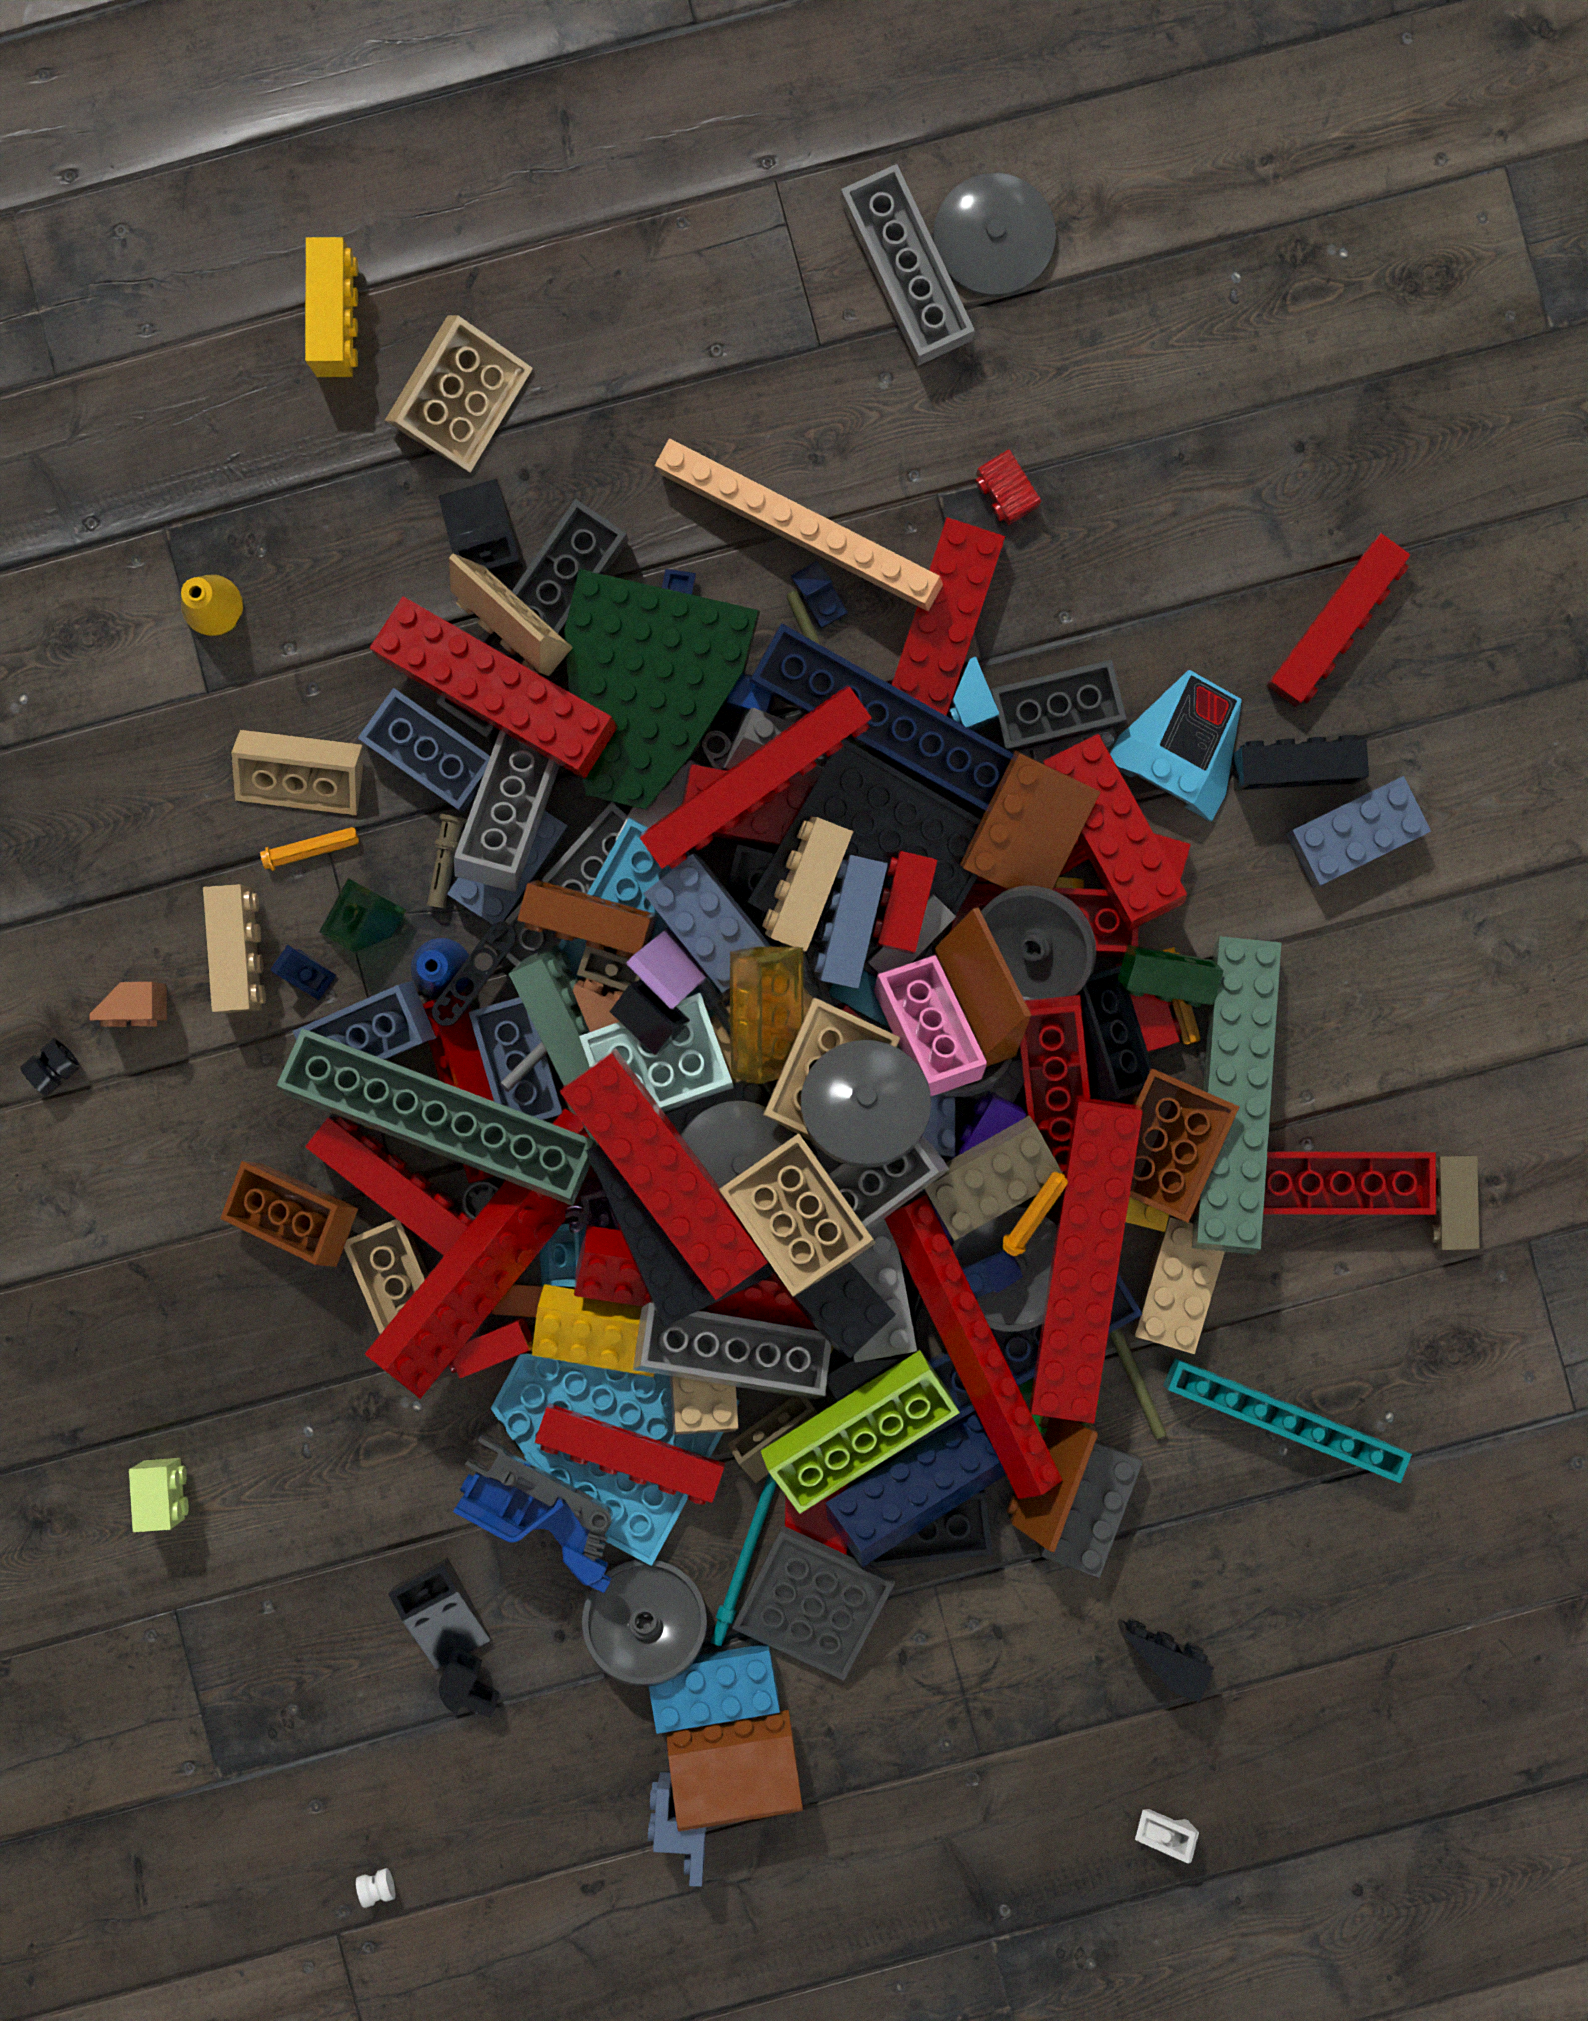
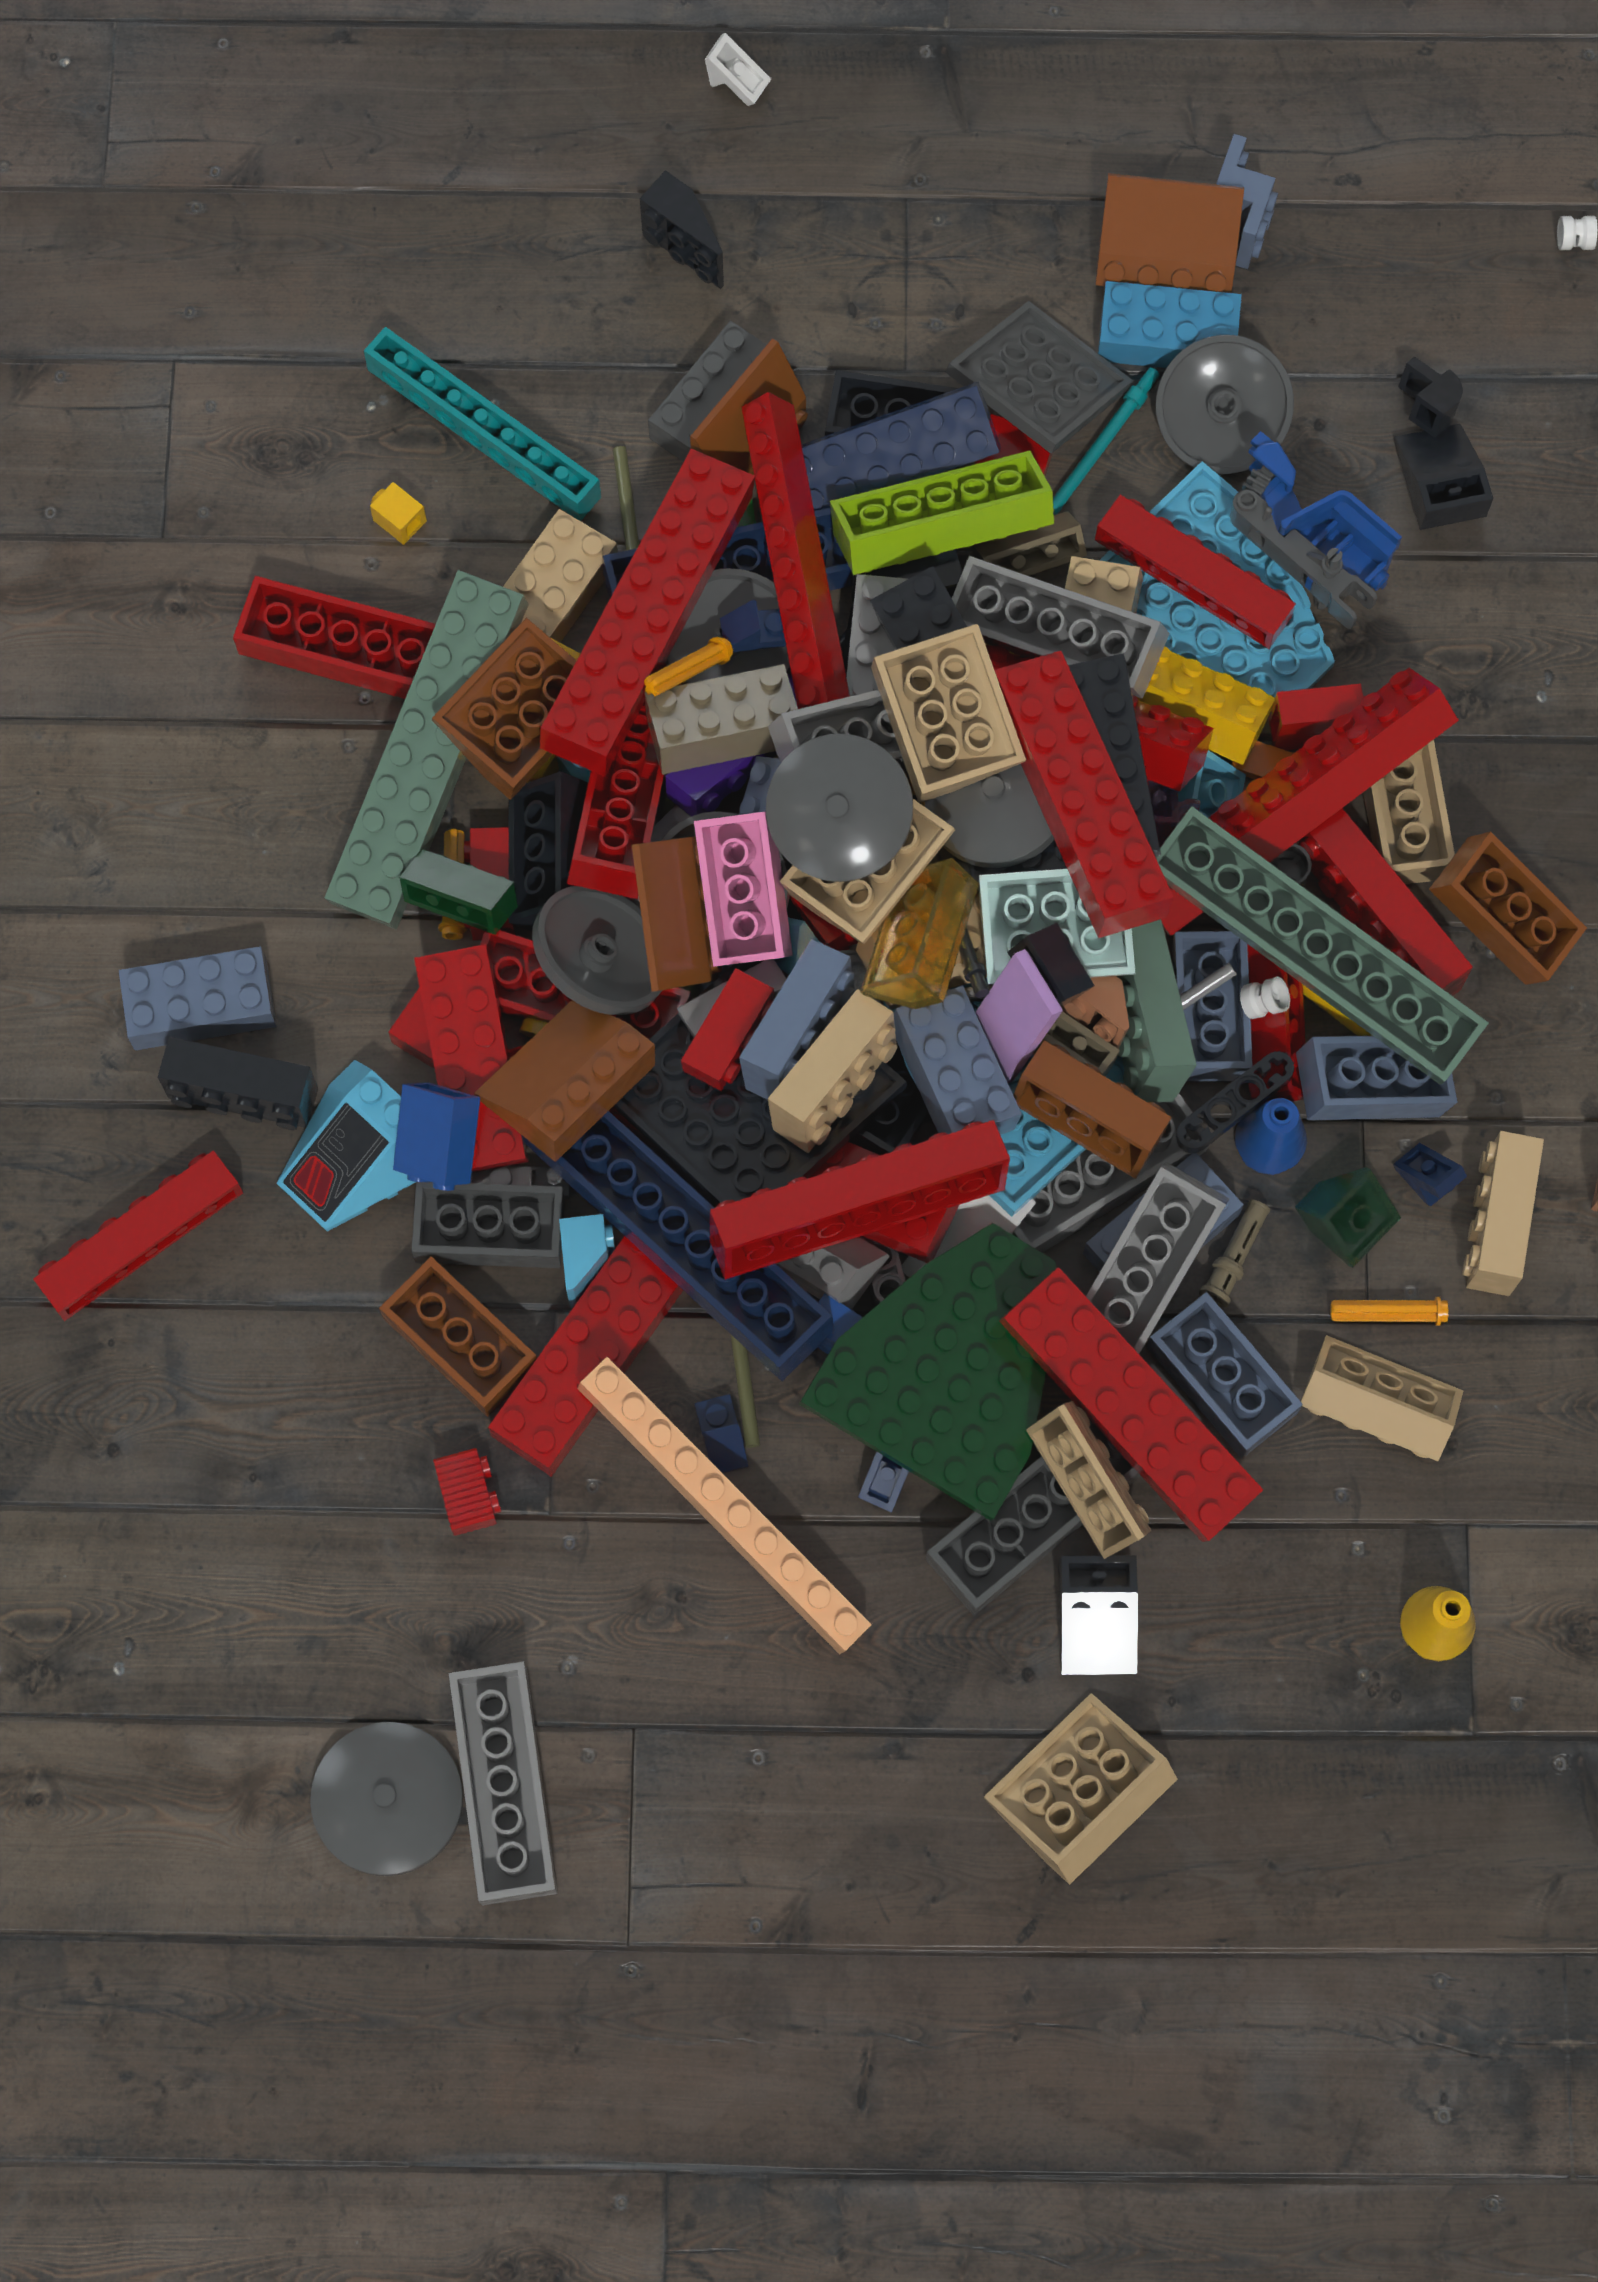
camera: 170 degrees left, 15 degrees down
(330, 307) = (1210, 1927): yellow brick -> none
(474, 1072) = (1260, 999): none -> white wheel
(1052, 607) = (458, 1336): none -> dark orange brick
(1121, 753) = (436, 1135): none -> blue brick
(1334, 1318) = (397, 512): none -> yellow brick
(1456, 1203) = (226, 590): dark tan brick -> none

